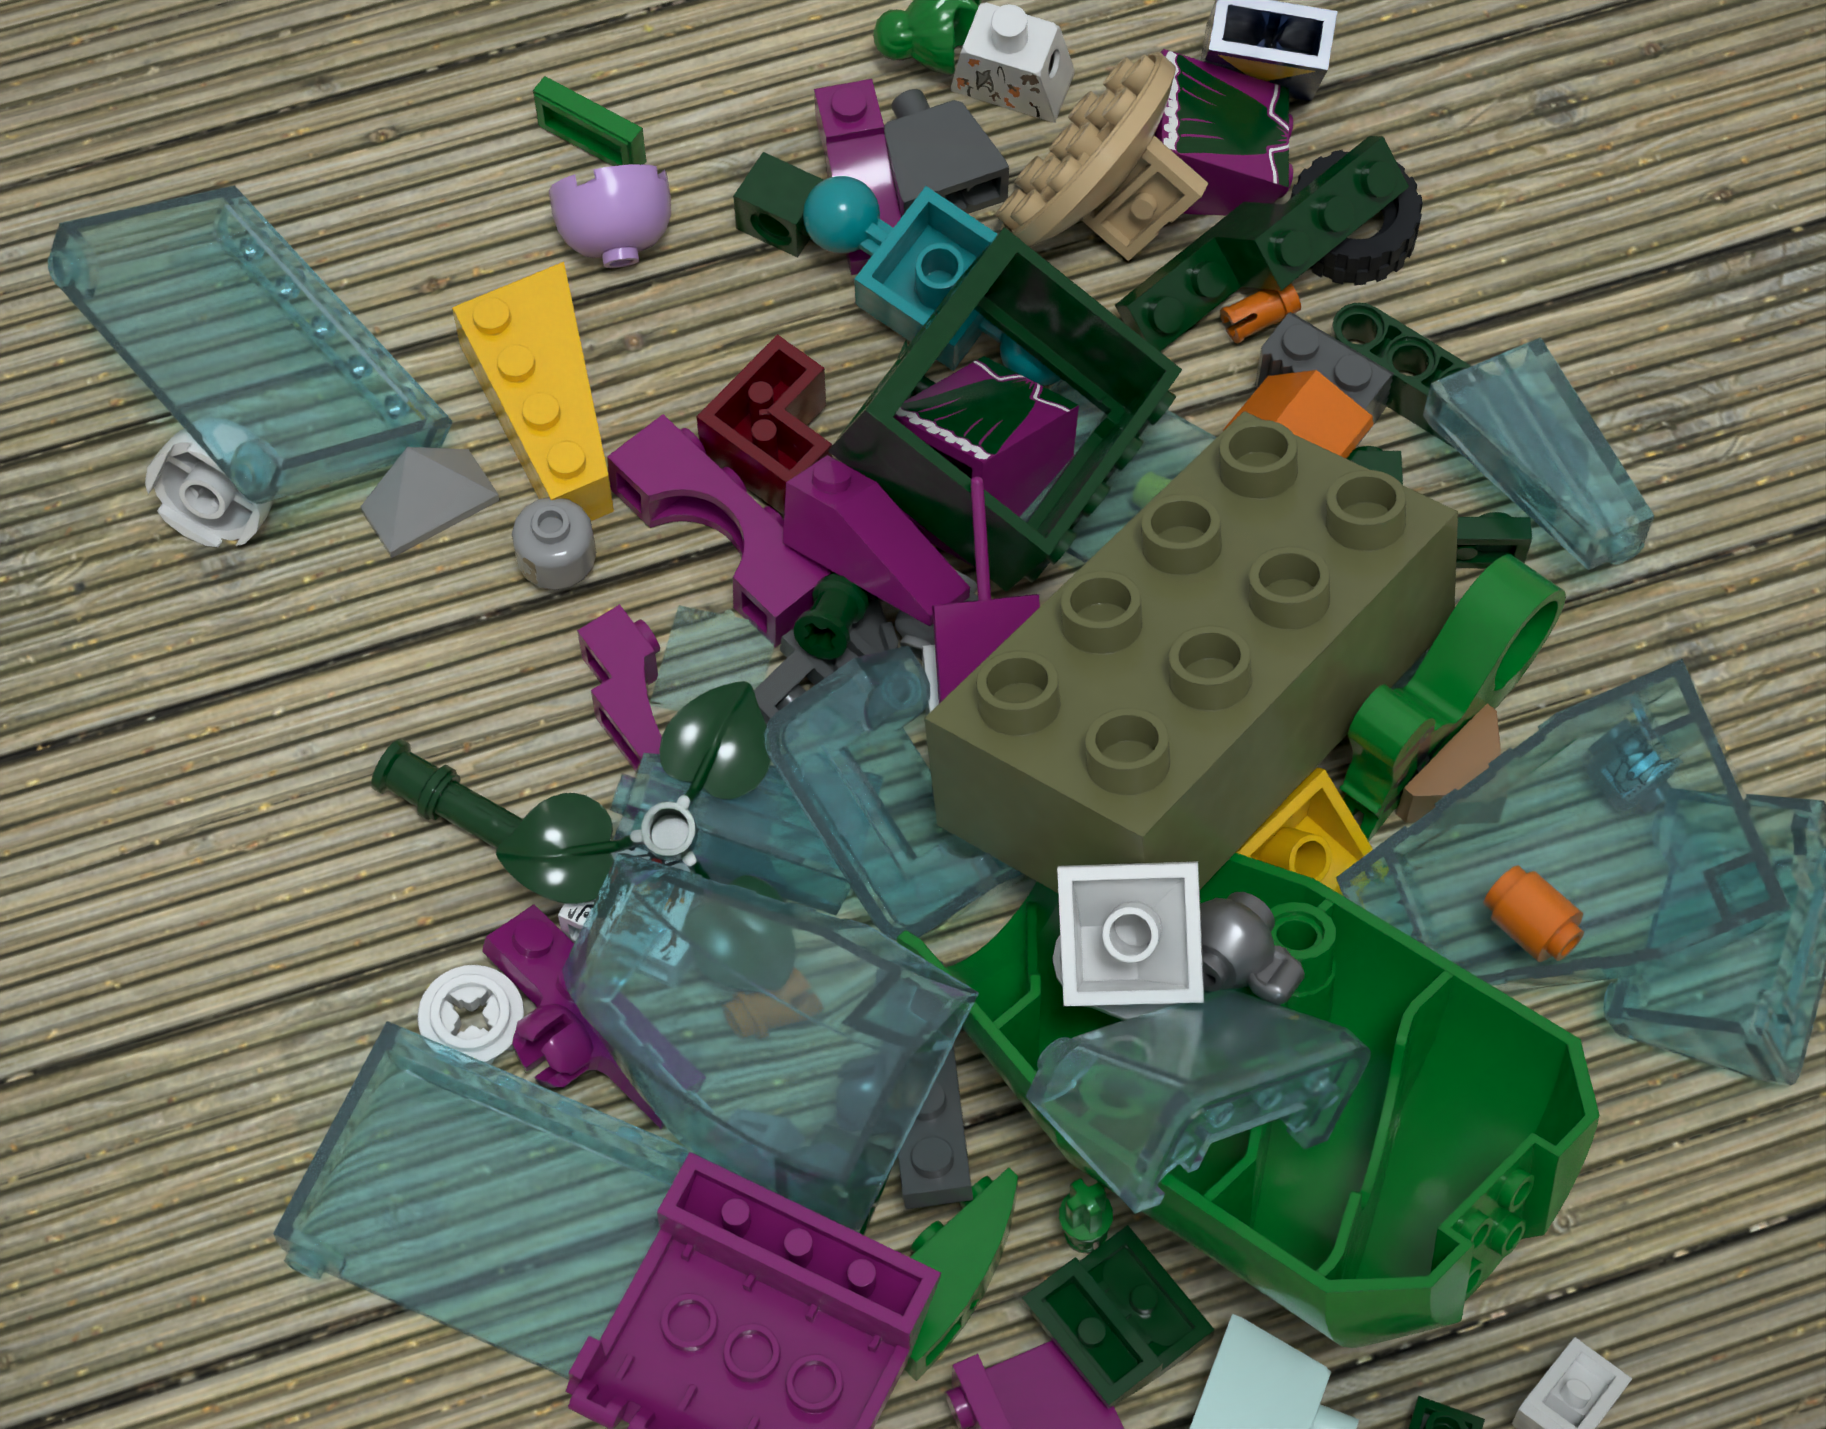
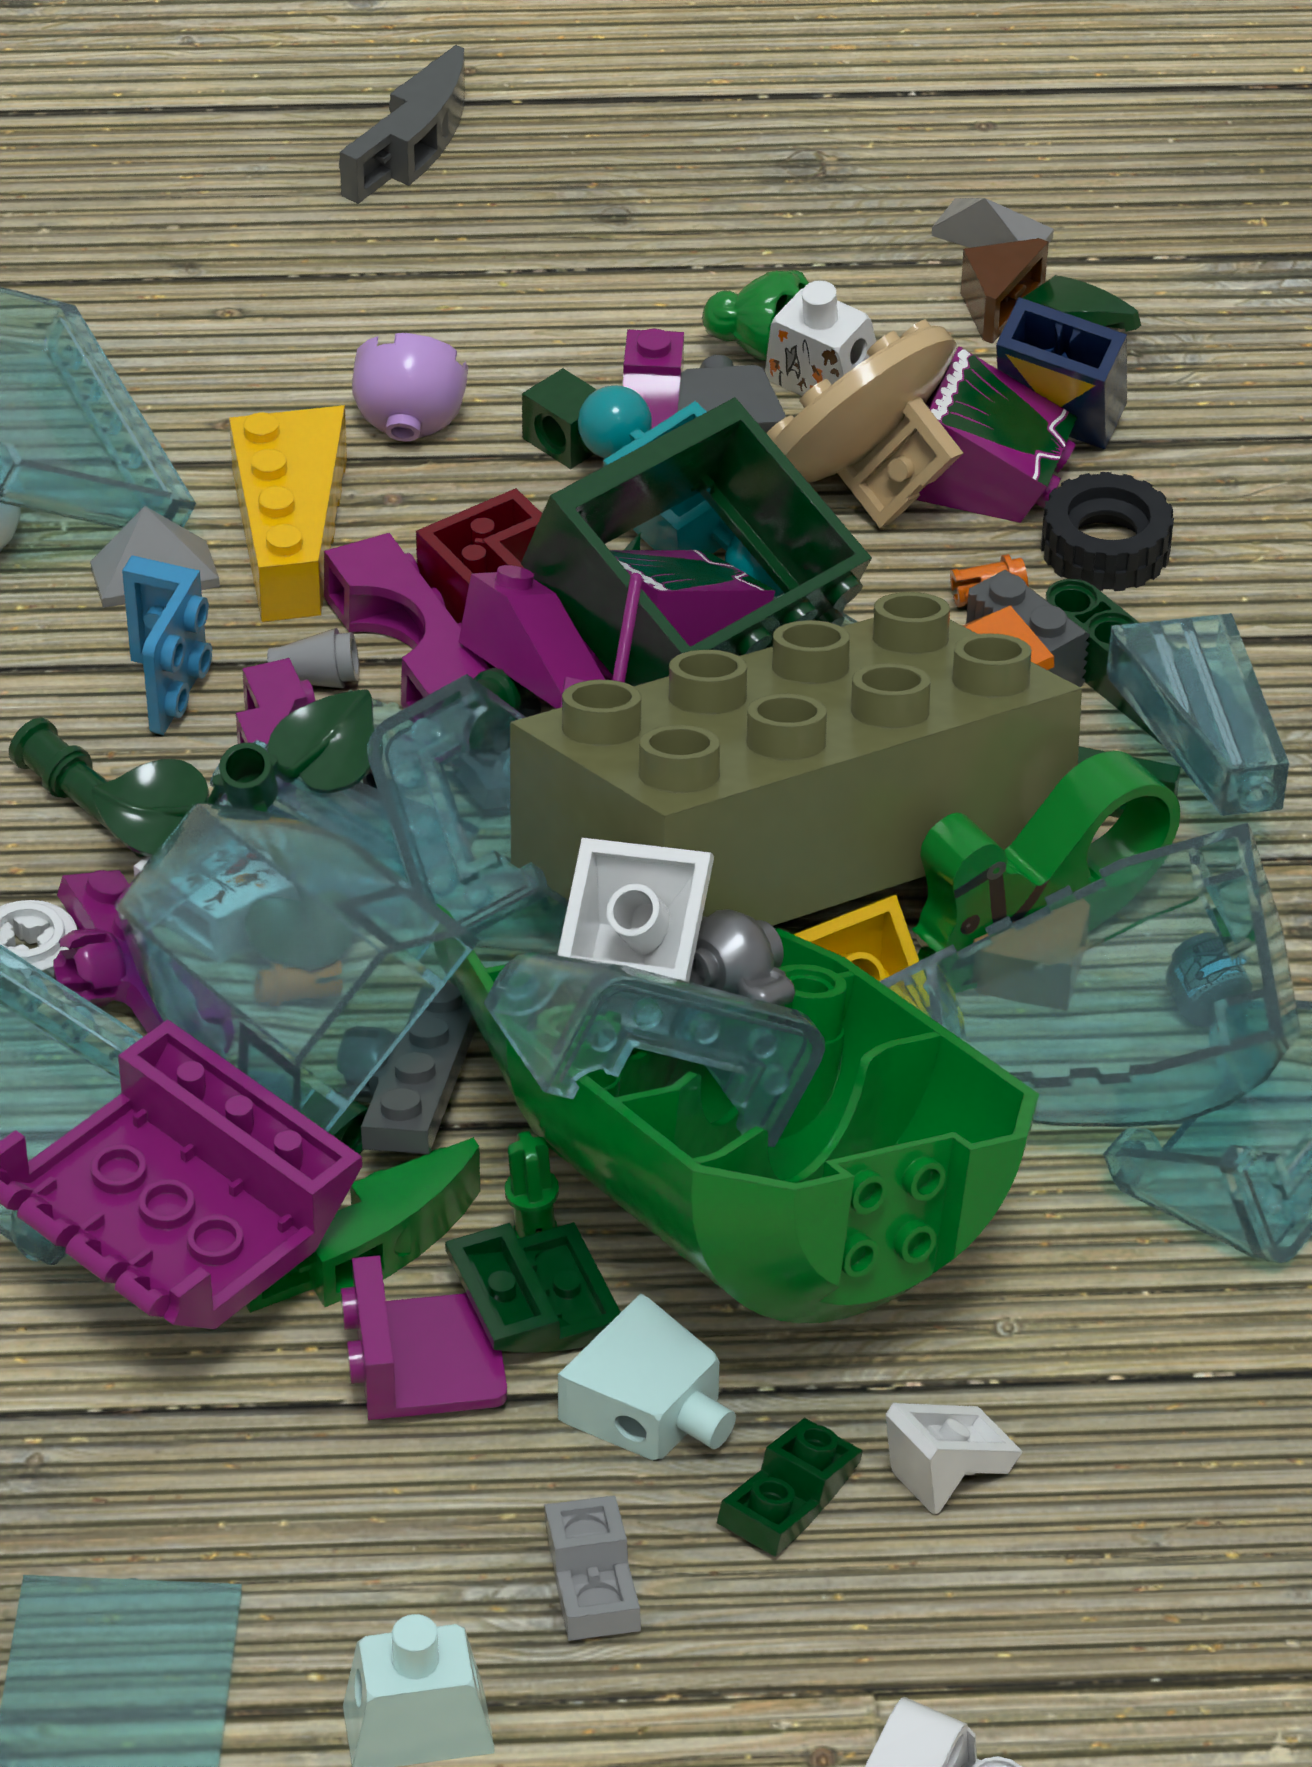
camera: 15 degrees right, 20 degrees down
(482, 585) = (166, 634): none -> dark azure bracket
(554, 543) = (251, 611): light grey head -> none
(588, 124) = (400, 313): green tile -> none
(637, 583) = (323, 659): none -> light grey cone
(1264, 244) = (1008, 522): dark green bracket -> none
(1534, 914) = (1054, 1044): orange brick -> none

